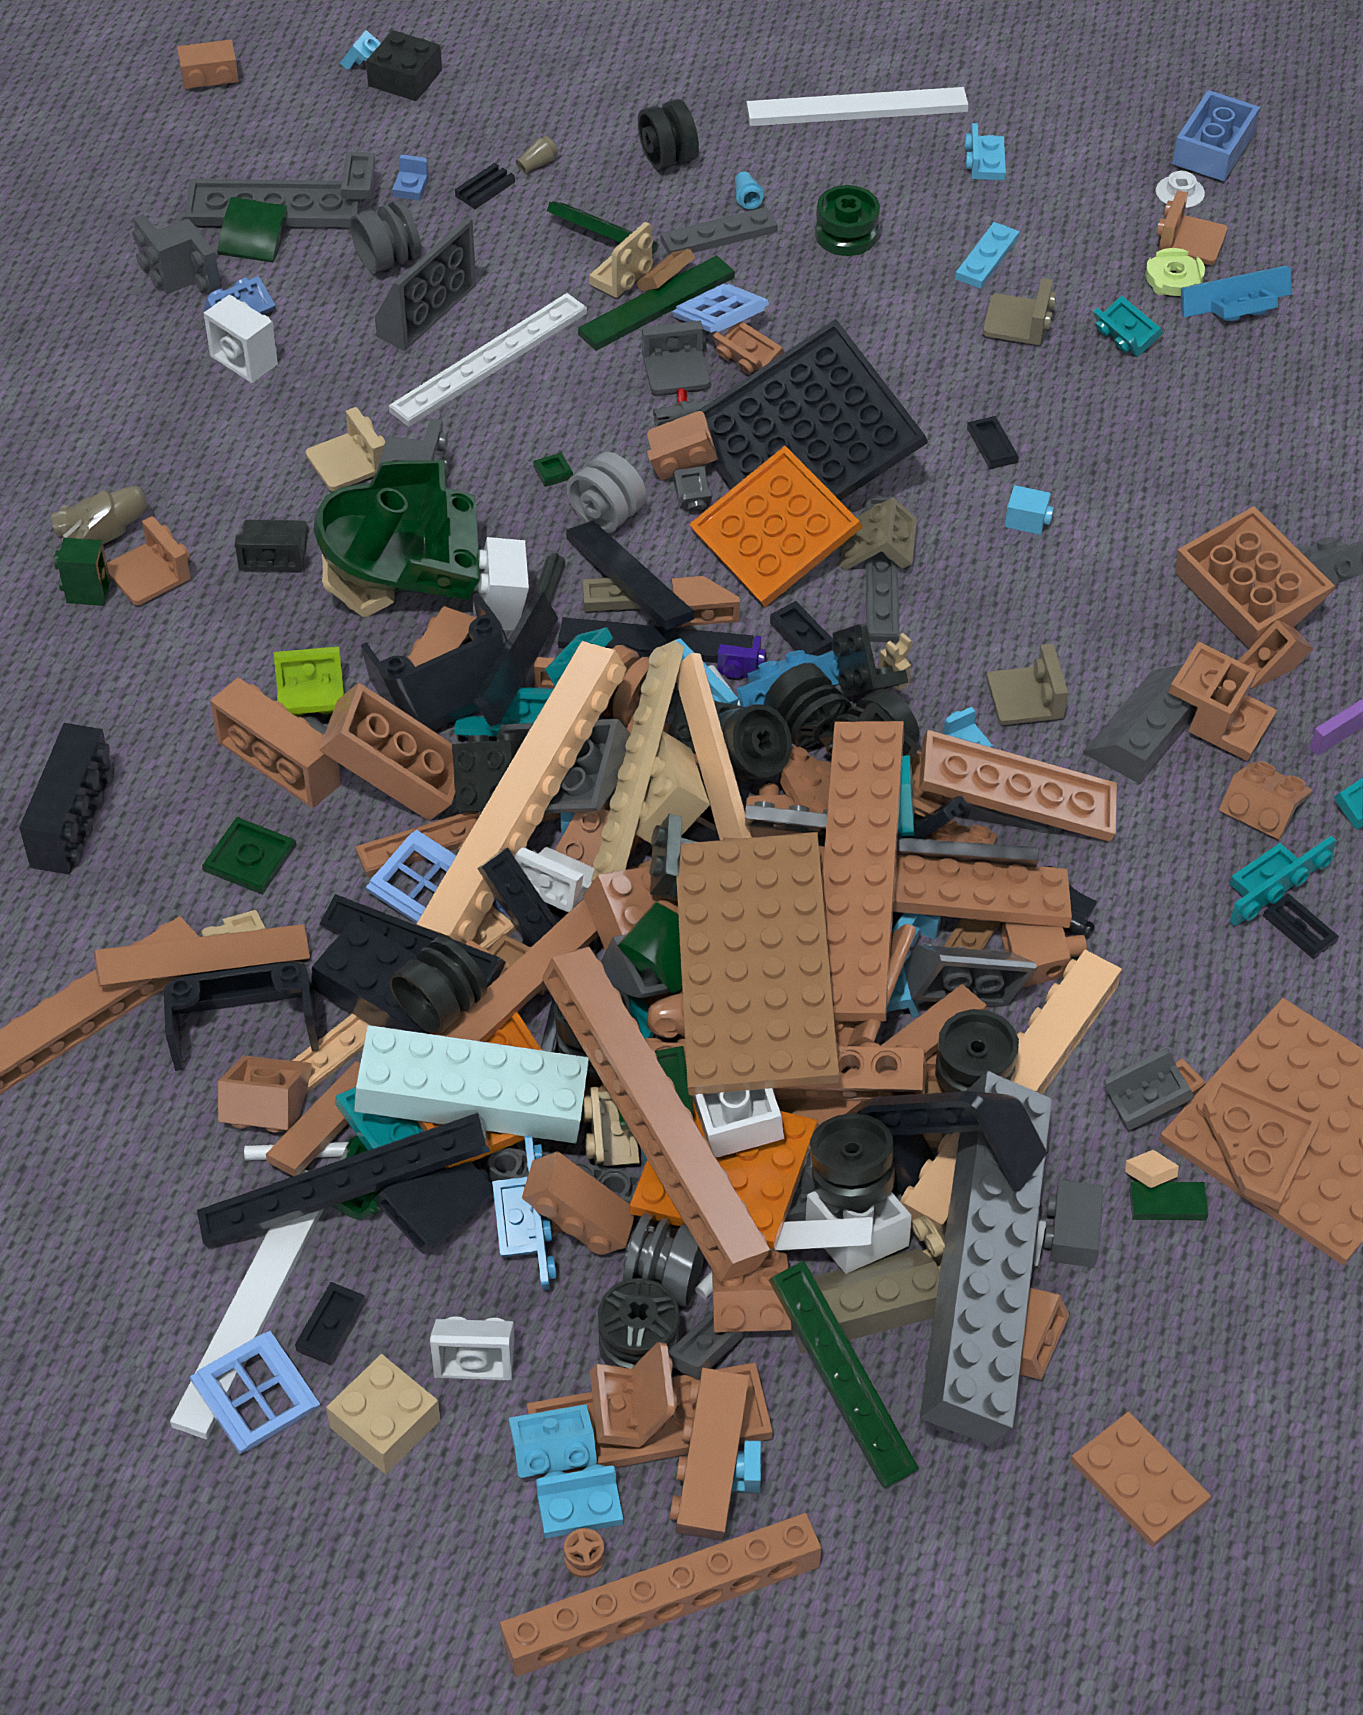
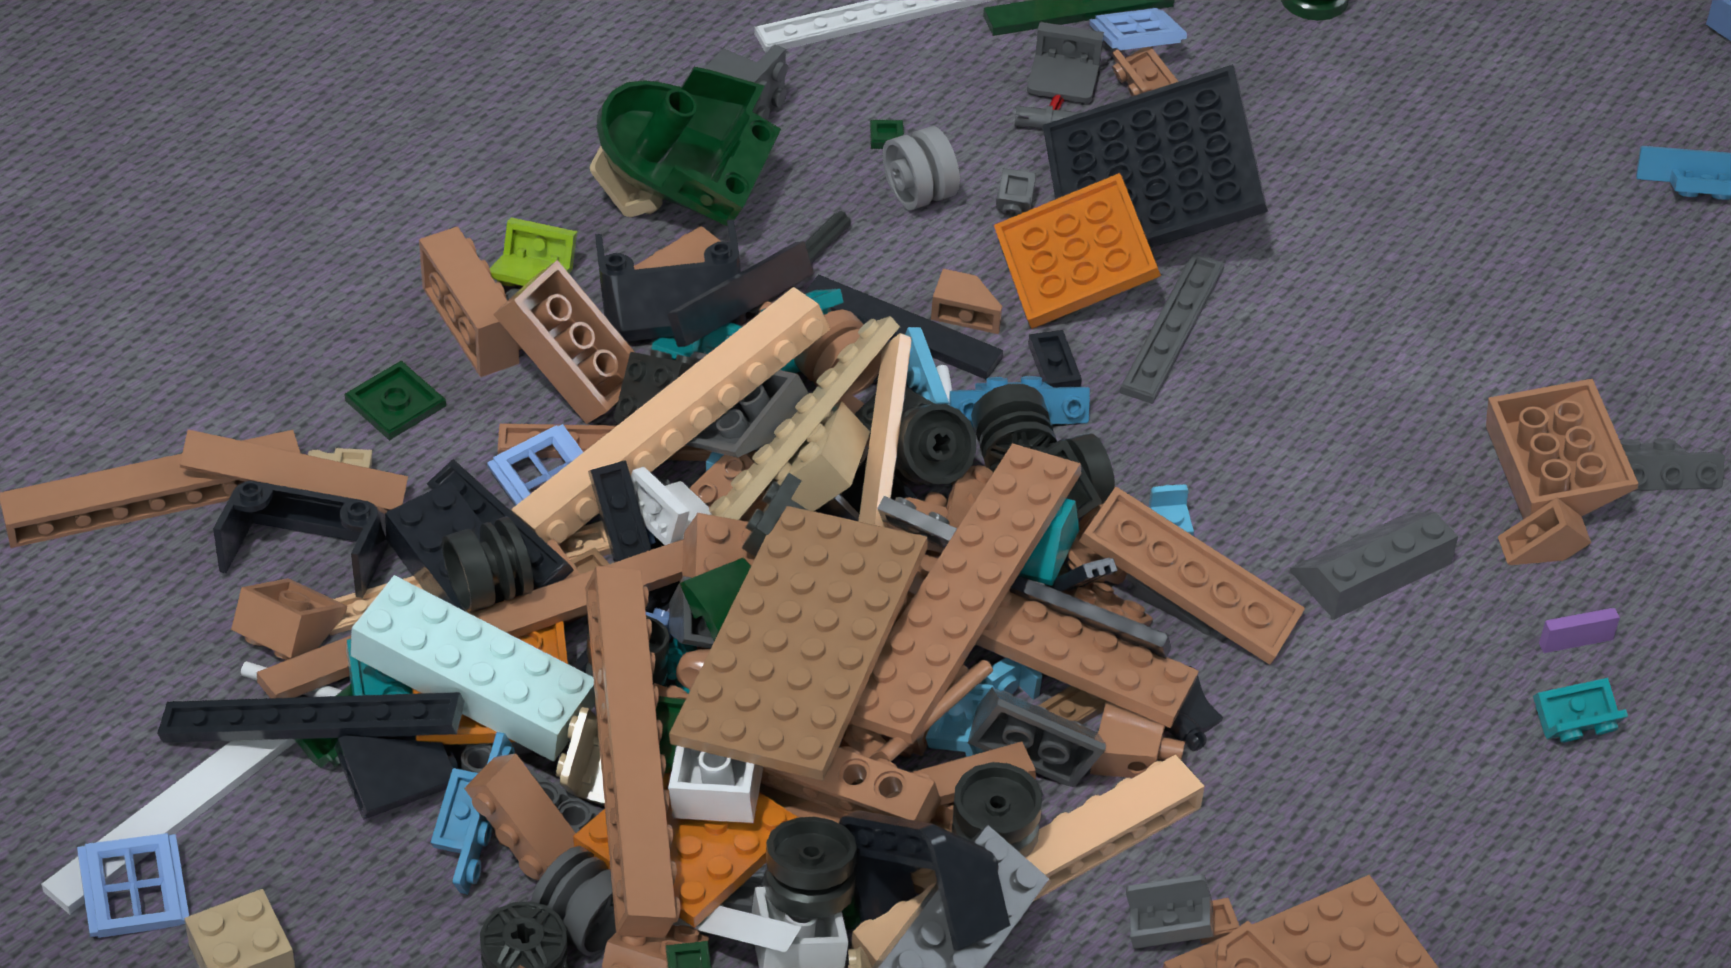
camera: 20 degrees right, 5 degrees down
(67, 799) = (244, 290): black brick -> none
(83, 571) = (372, 90): dark green brick -> none
(101, 515) = (416, 48): dark tan animal -> none
(152, 566) = (444, 108): nougat bracket -> none
(271, 545) = (564, 122): pearl dark grey bracket -> none
(330, 1323) = (238, 849): black plate -> none
(349, 456) = (675, 60): tan bracket -> none
(472, 1348) = (356, 918): white slope -> none
(503, 579) = (768, 217): white brick -> none
(604, 595) = (883, 268): dark tan plate -> none
(630, 575) = (904, 253): black tile -> none
(681, 445) = (1024, 147): nougat bracket -> none
(739, 661) = (973, 368): dark purple bracket -> none
(857, 663) = (1080, 417): pearl dark grey bracket -> none
(886, 529) = (1192, 289): dark tan bracket -> none
(895, 656) = (1131, 420): tan plate -> none
(987, 255) = (1452, 58): medium azure plate -> none
(992, 442) = (1357, 241): black tile -> none
(1020, 317) = (1454, 128): dark tan bracket -> none
(1028, 510) = (1356, 316): medium azure brick -> none
(1030, 692) = (1259, 492): dark tan bracket -> none
(1128, 326) = (1564, 168): teal bracket -> none
(1165, 282) = (1631, 128): yellowish green plate -> none
(1180, 181) = (1701, 52): white piece -> none
(1189, 233) = (1682, 99): nougat bracket -> none
(1224, 709) = (1457, 561): nougat bracket -> none
(1264, 798) = (1457, 672): nougat bracket -> none
(1273, 874) = (1426, 752): teal bracket -> none
(1297, 930) = (1429, 840): black tile -> none

